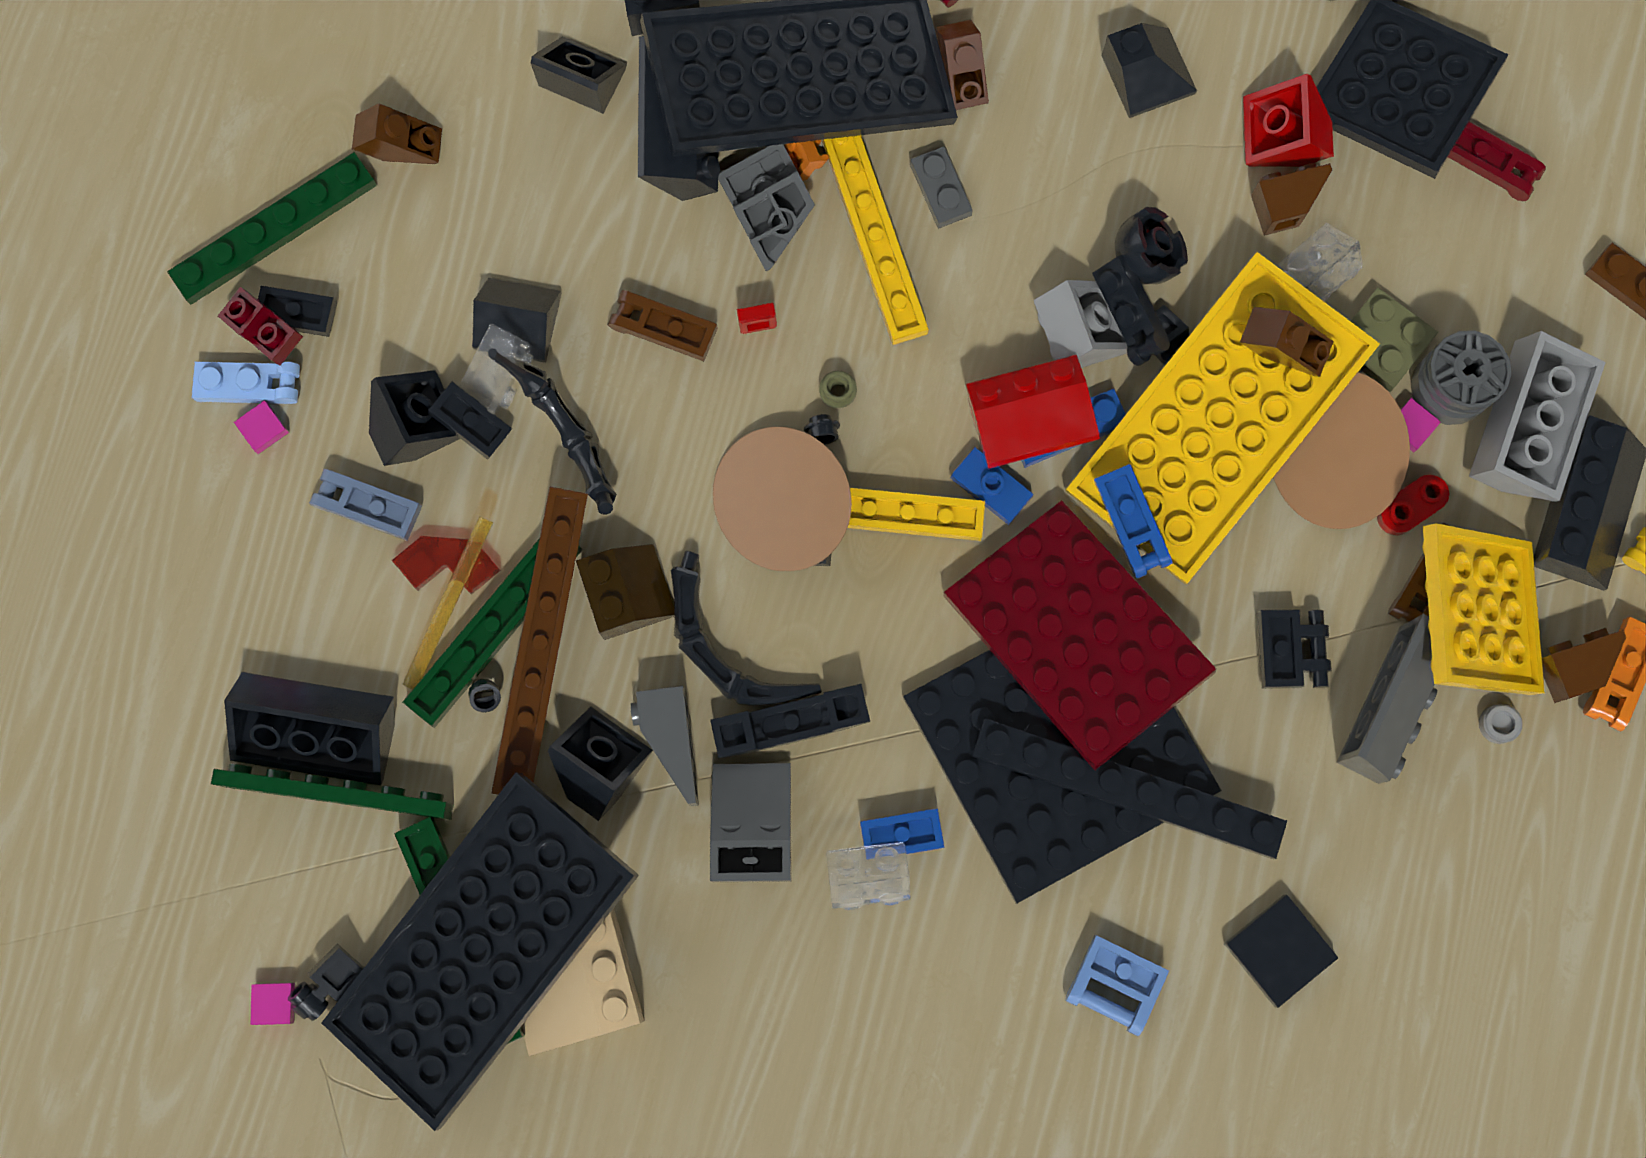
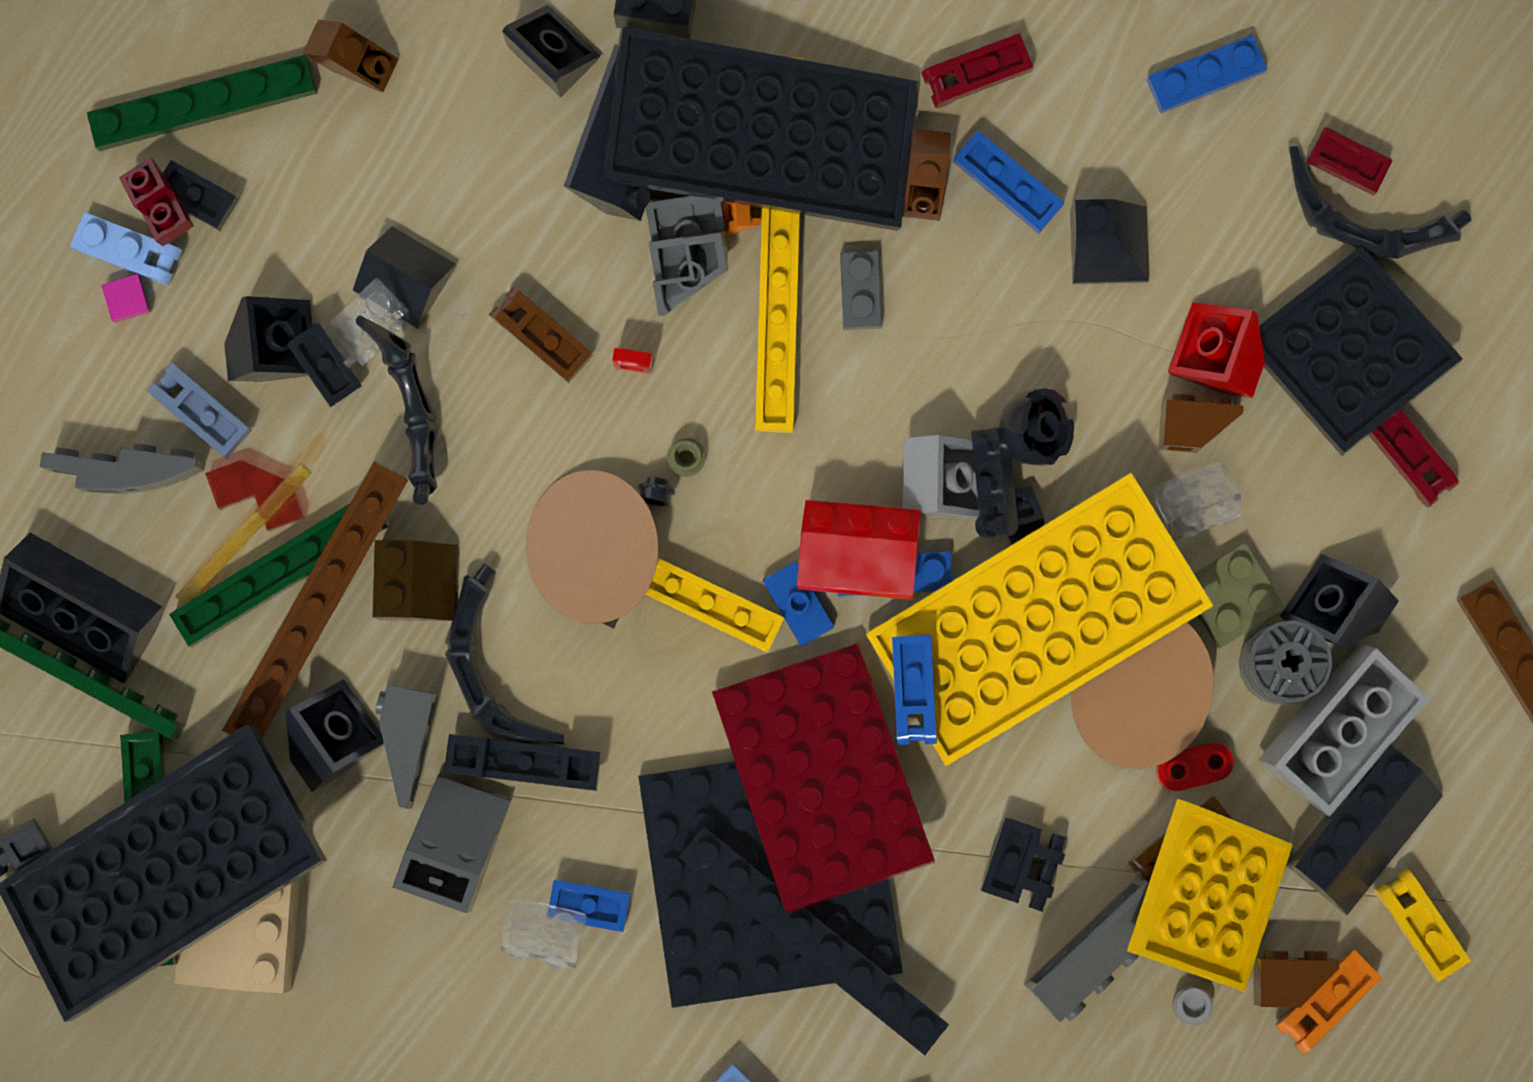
camera: 20 degrees right, 5 degrees up
(325, 581) = (136, 469): none -> dark grey slope
(485, 700) = (247, 634): black hinge -> none
(1038, 47) = (1008, 182): none -> blue plate
(1286, 340) = (1122, 572): reddish brown slope -> none
(1419, 423) = (1228, 690): dark pink tile -> none
(1488, 303) = (1340, 602): none -> black slope

